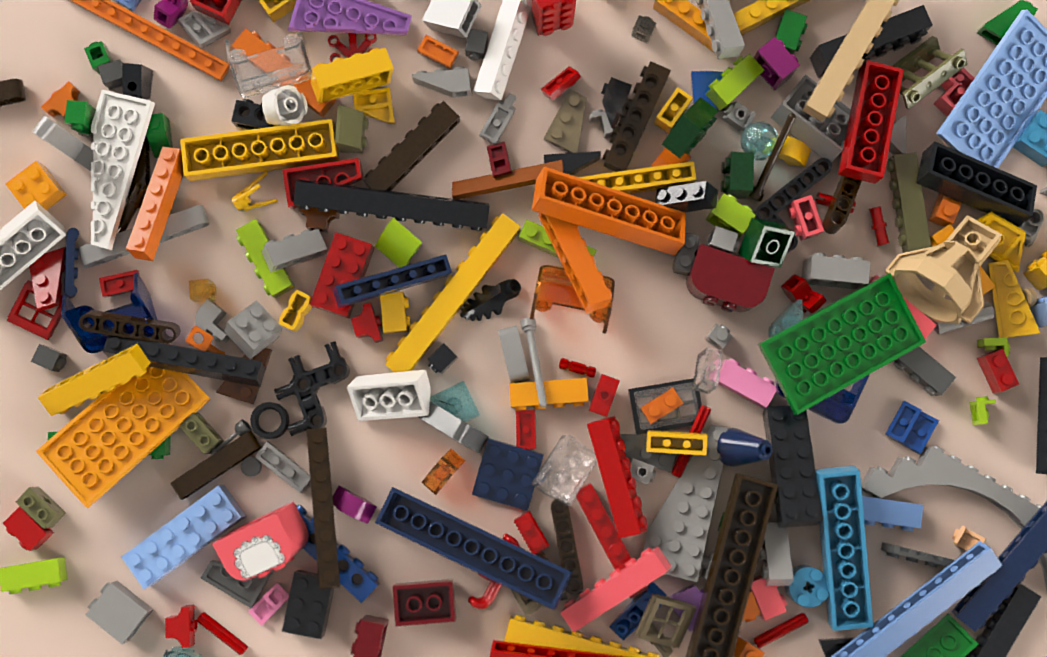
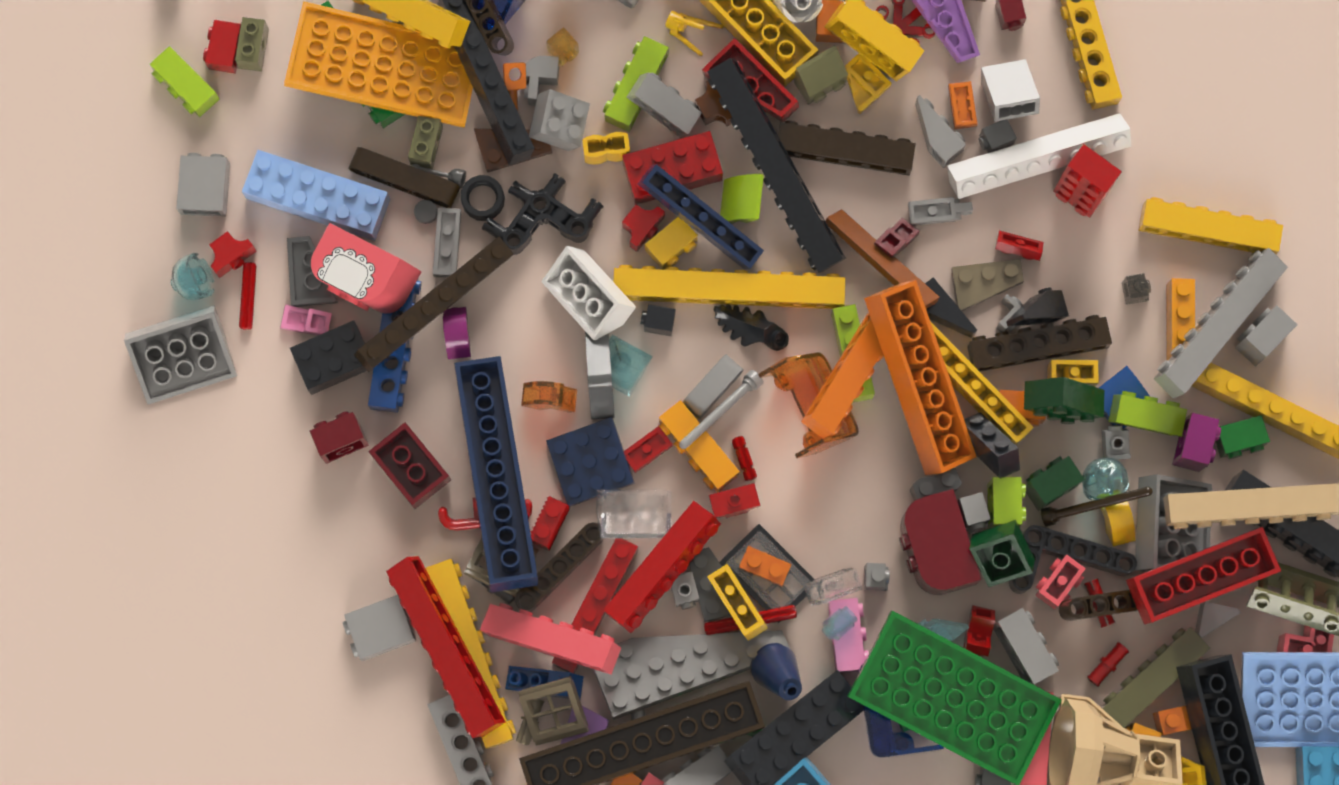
camera: 55 degrees right, 5 degrees down
(737, 384) = (839, 623): none -> clear light blue brick

